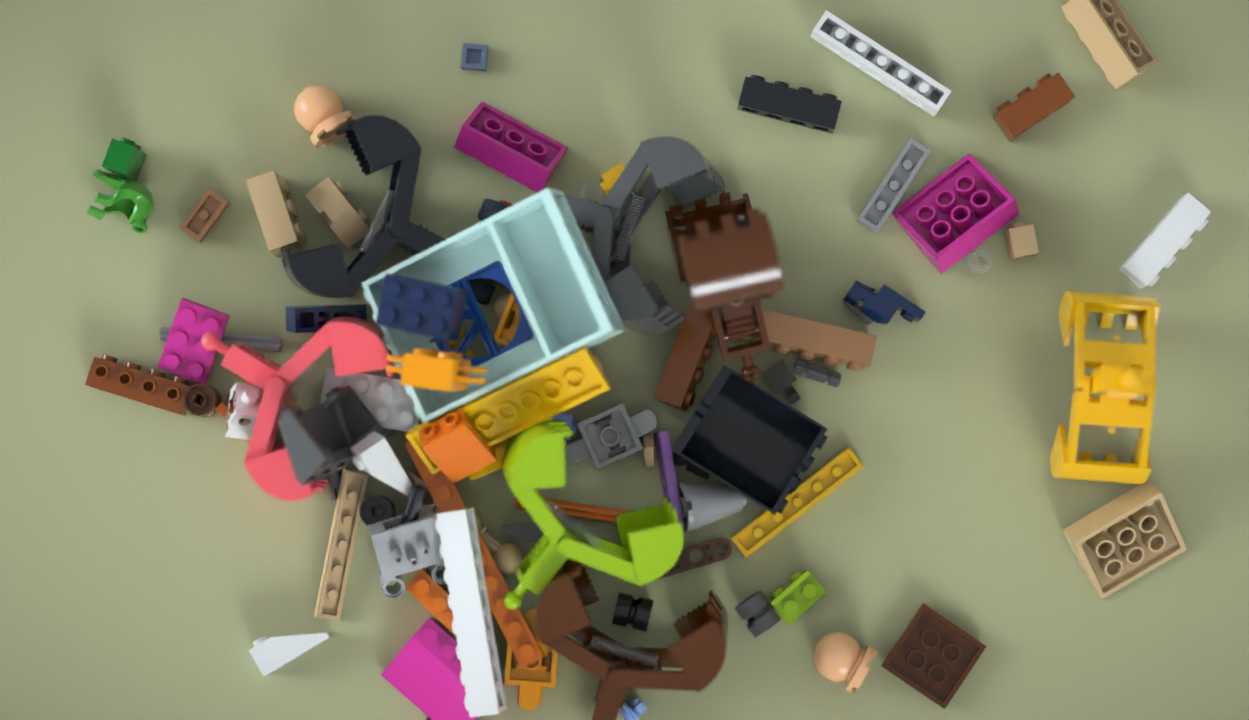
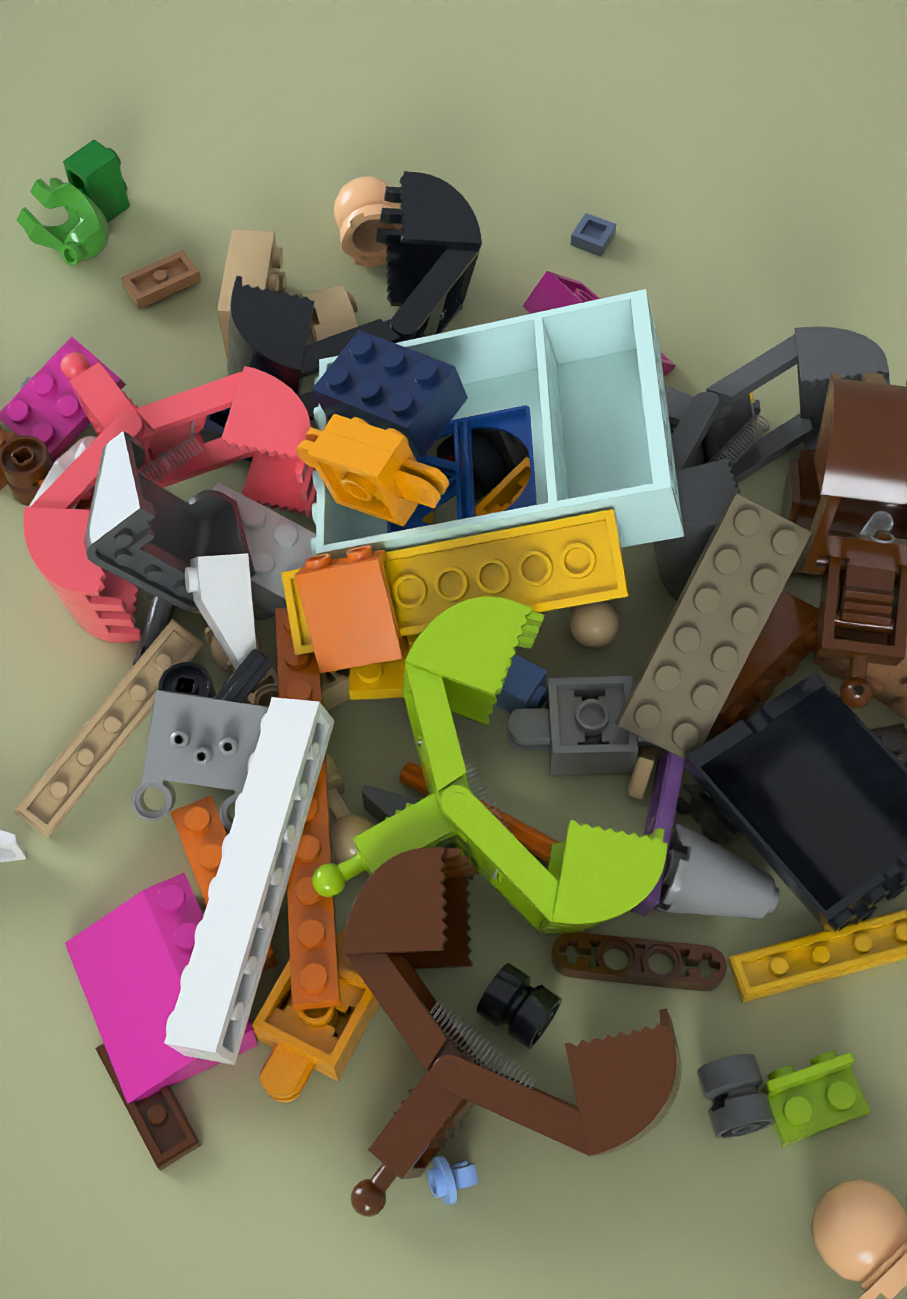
camera: 20 degrees right, 25 degrees down
(660, 372) = (713, 626): none -> dark tan plate

